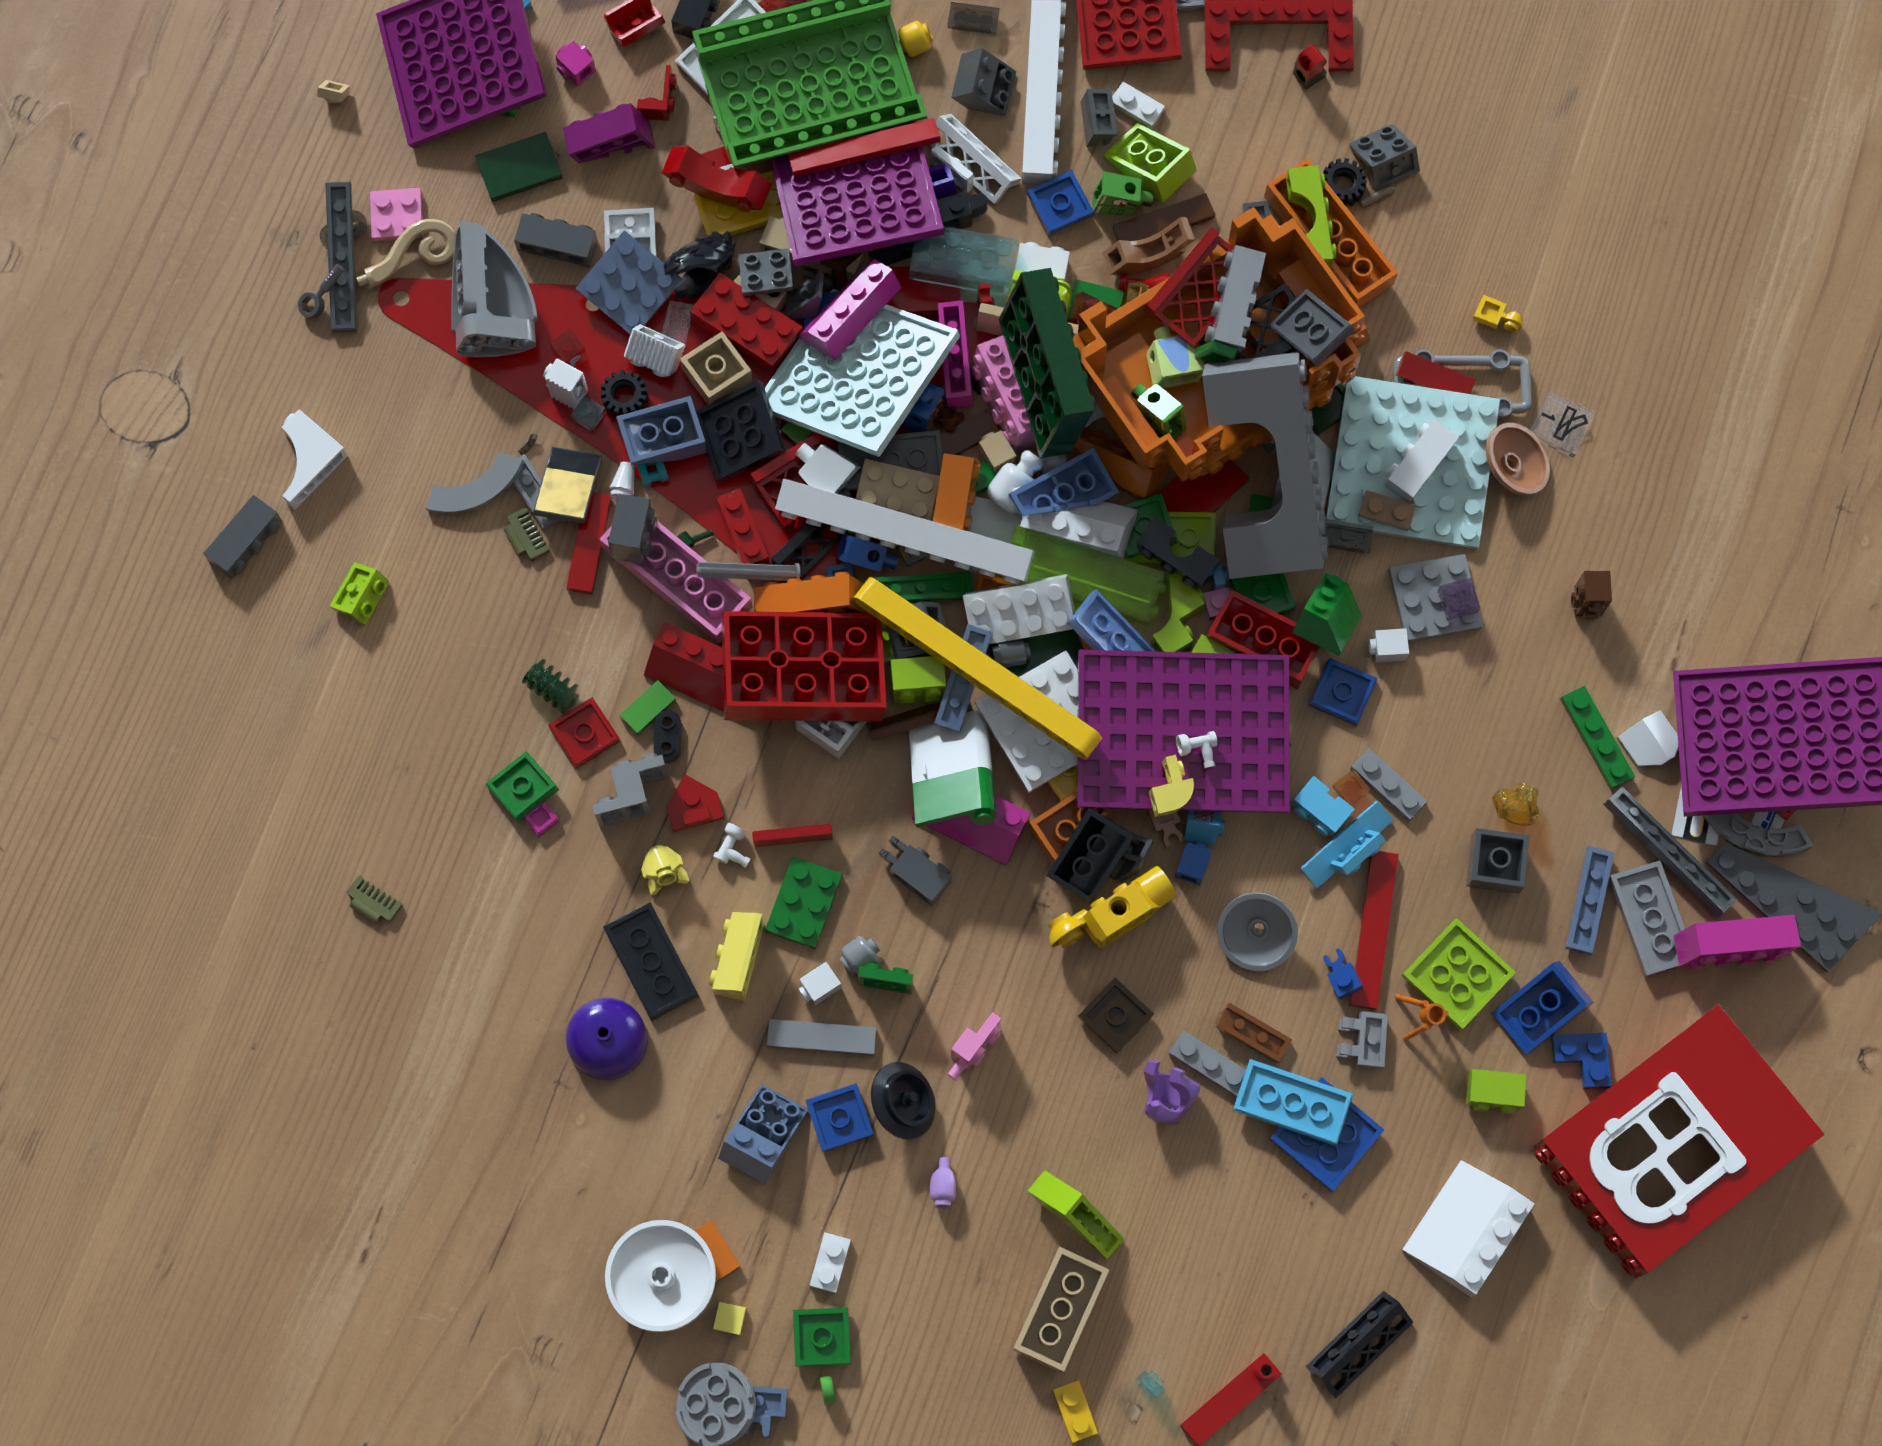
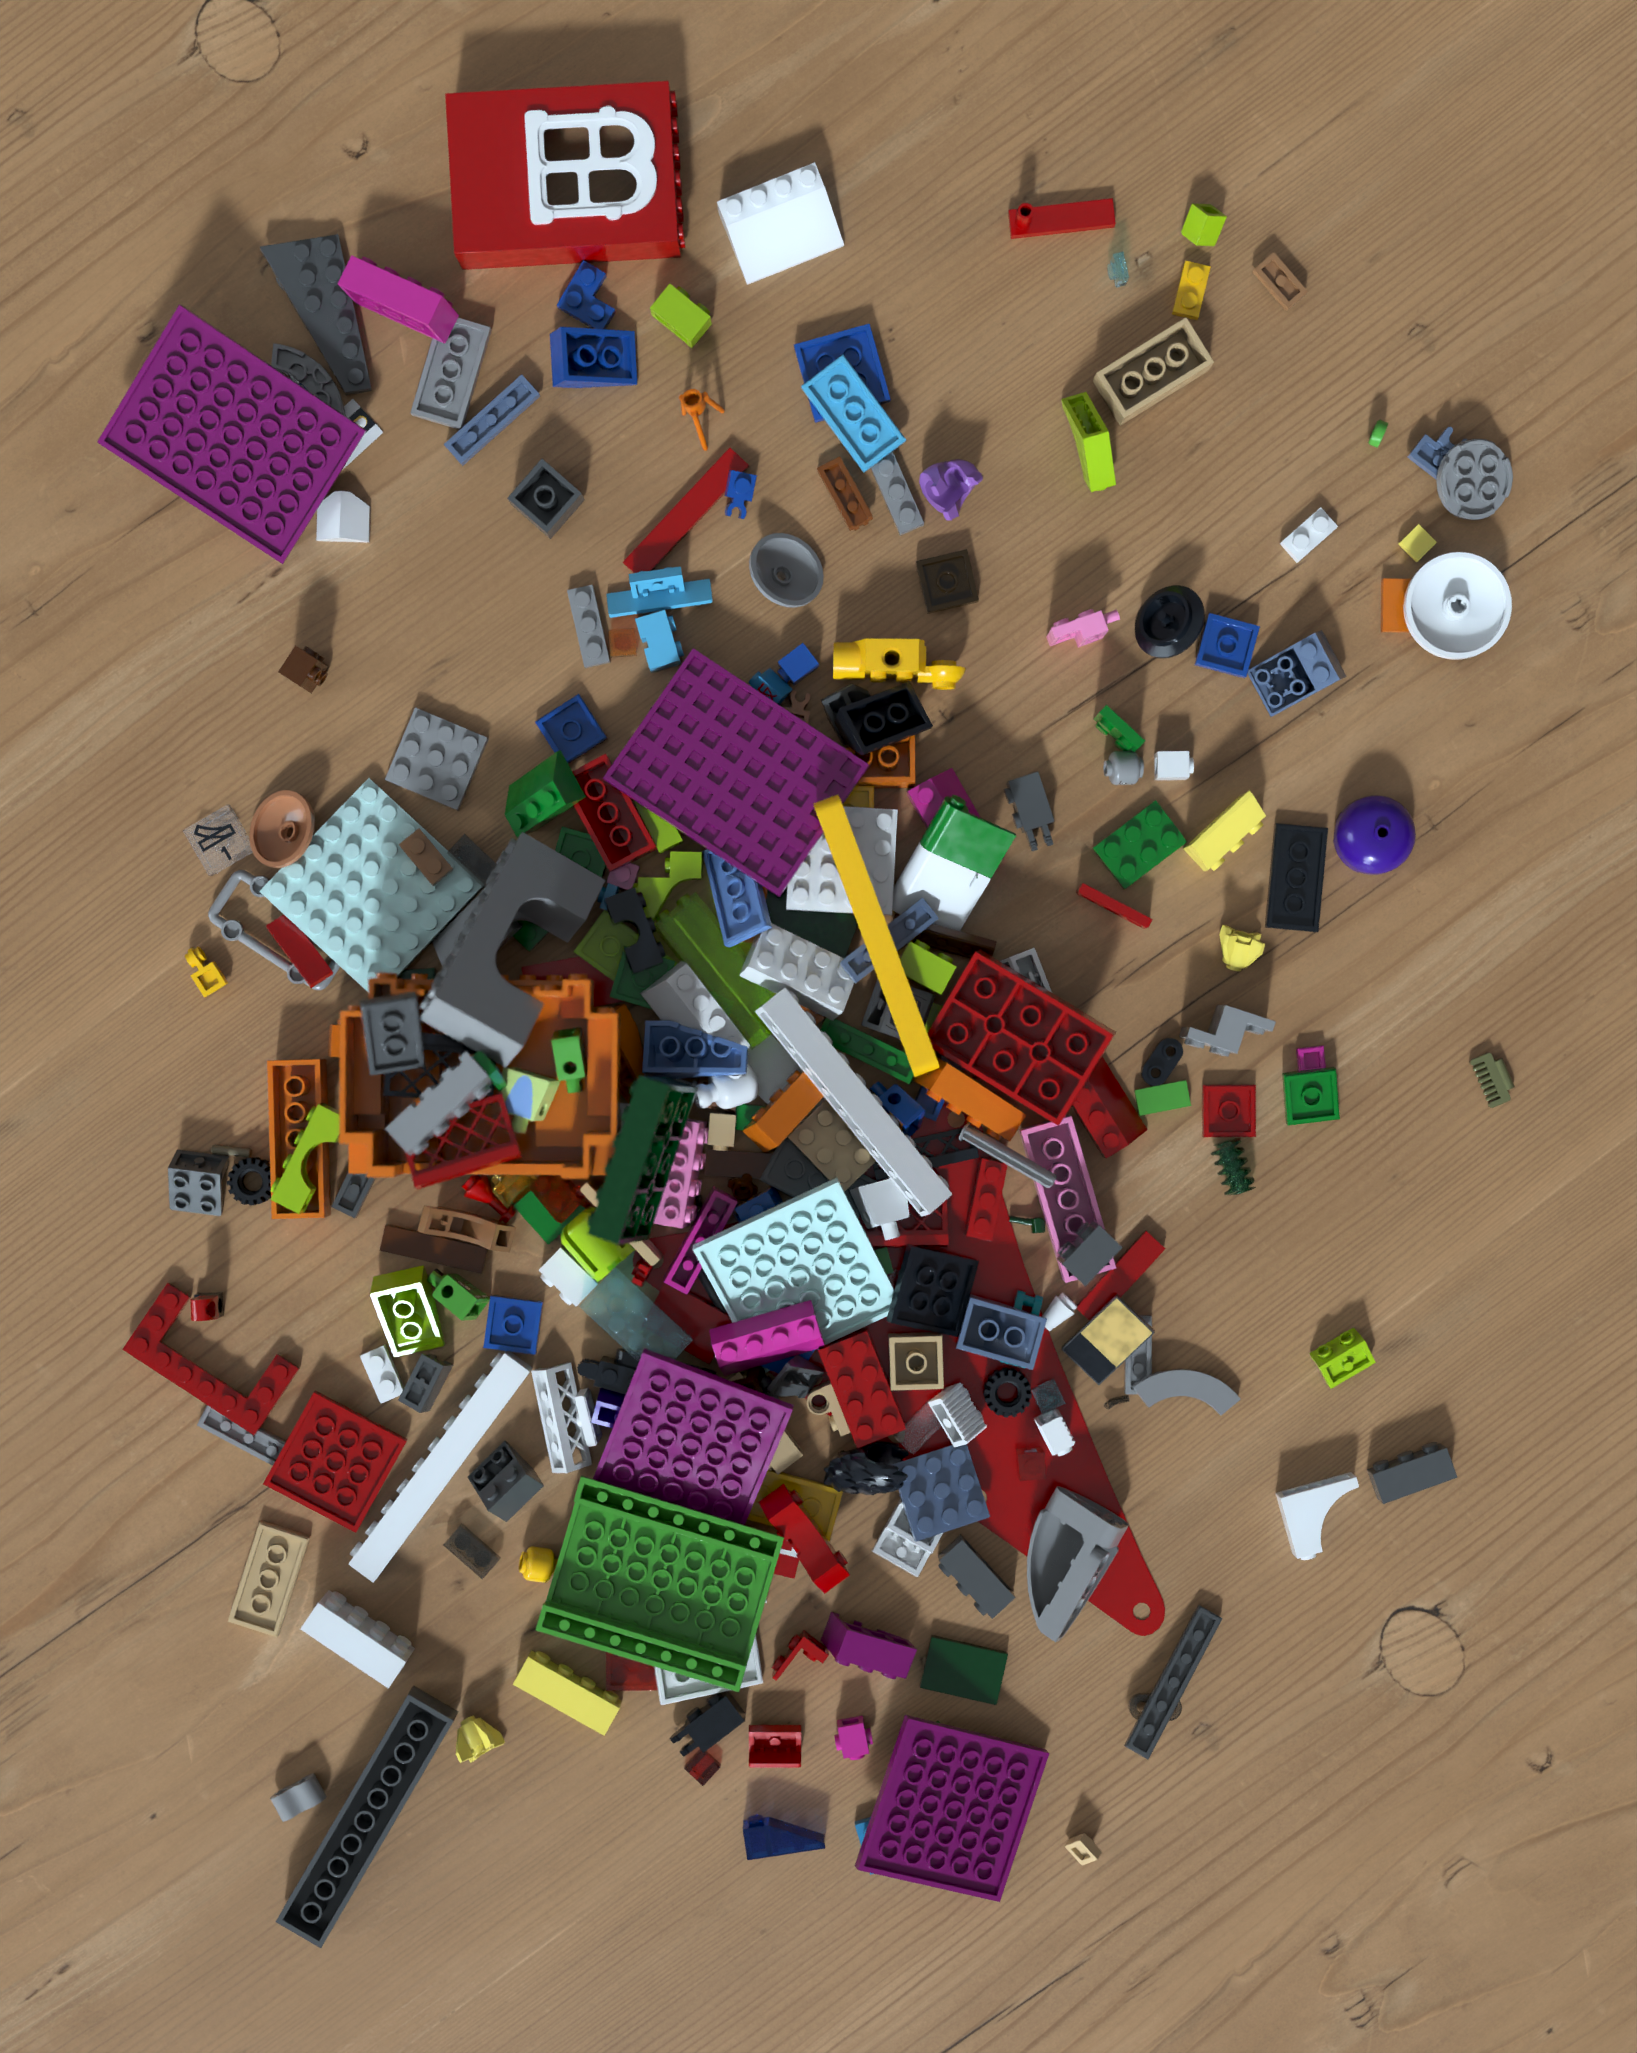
camera: 150 degrees left, 15 degrees up
(319, 301) = (1217, 1651): flat silver piece -> none
(385, 270) = (1142, 1645): tan plant -> none
(394, 212) = (1098, 1693): bright pink plate -> none
(519, 538) = (1176, 1320): olive piece -> none
(693, 805) = (1178, 987): red plate -> none
(726, 852) = (1176, 929): white piece -> none
(765, 272) = (817, 1421): dark grey bracket -> none
(821, 1037) = (1197, 722): light grey tile -> none
(821, 1336) = (1354, 479): green plate -> none
(864, 147) = (656, 1481): tile -> none
(943, 1184) = (1179, 535): lavender plant -> none
(1011, 653) = (831, 940): dark grey brick -> none
(1175, 794) = (782, 718): light yellow brick -> none
(1206, 742) = (726, 747): white piece -> none
(1357, 1339) = (931, 195): black fence -> none
(1370, 1042) = (753, 424): light grey plate -> none
(1389, 645) = (505, 741): white brick -> none
(1420, 460) = (367, 878): white brick -> none
(1458, 599) = (420, 739): clear purple piece -> none
(1458, 973) = (643, 431): lime plate -> none
(1520, 804) = (493, 536): clear yellow piece -> none
(1597, 737) = (386, 551): green plate -> none
(1670, 851) = (396, 415): dark grey plate -> none

